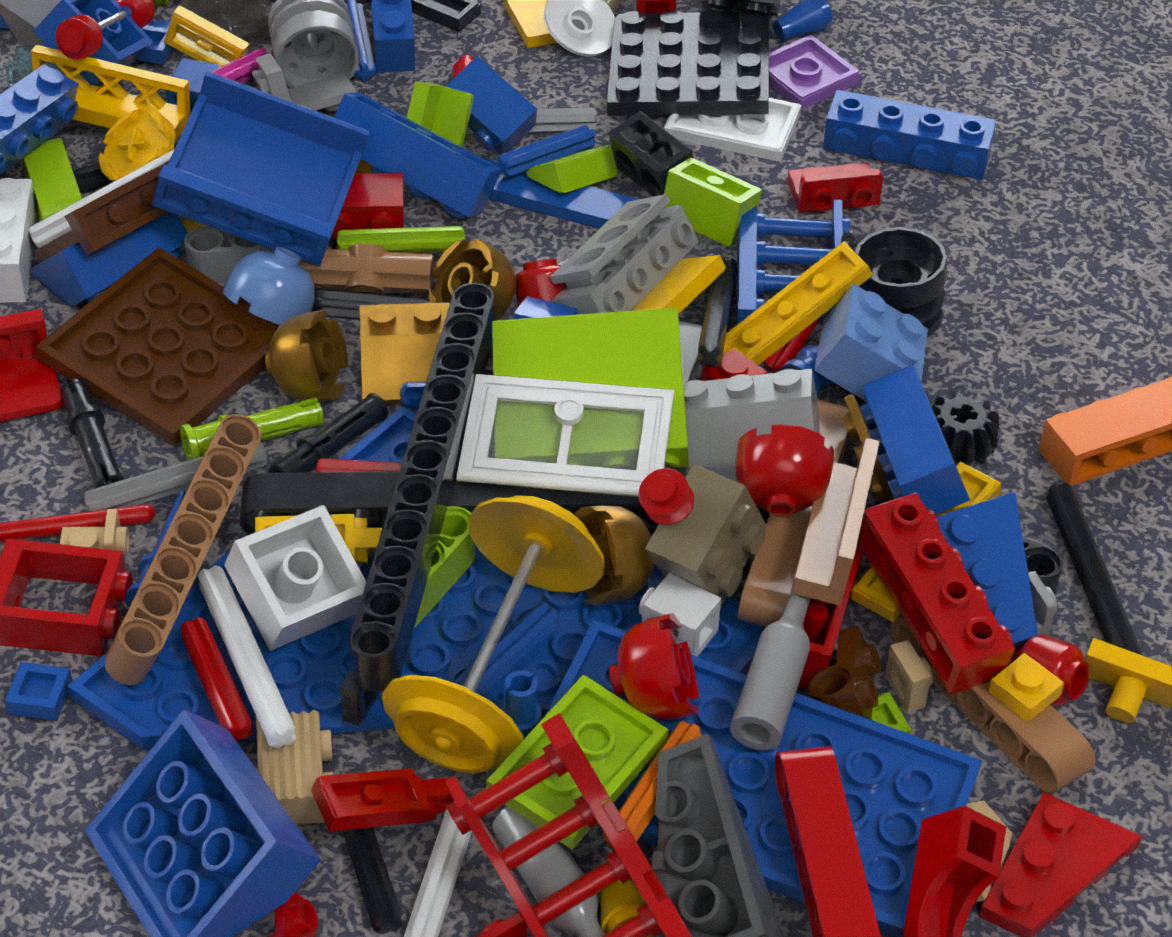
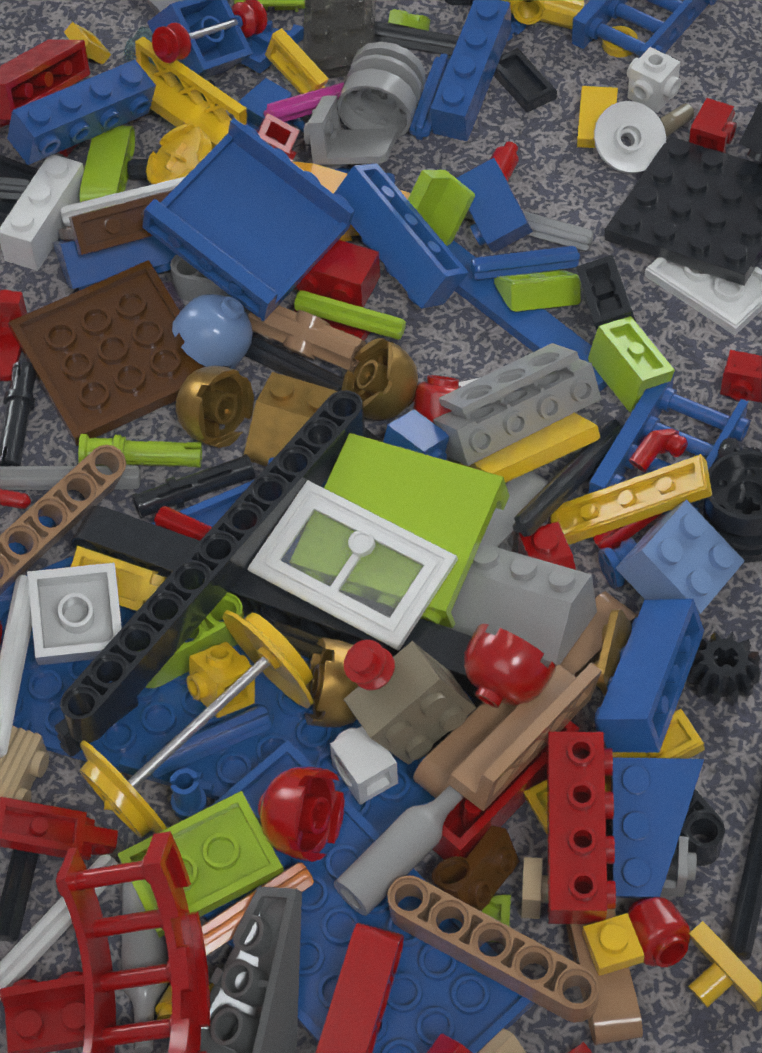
camera: 30 degrees right, 10 degrees up
(481, 585) = (214, 672): none -> yellow brick
(781, 258) = (658, 443): none -> red arm
(945, 717) = (503, 968): none -> medium nougat beam

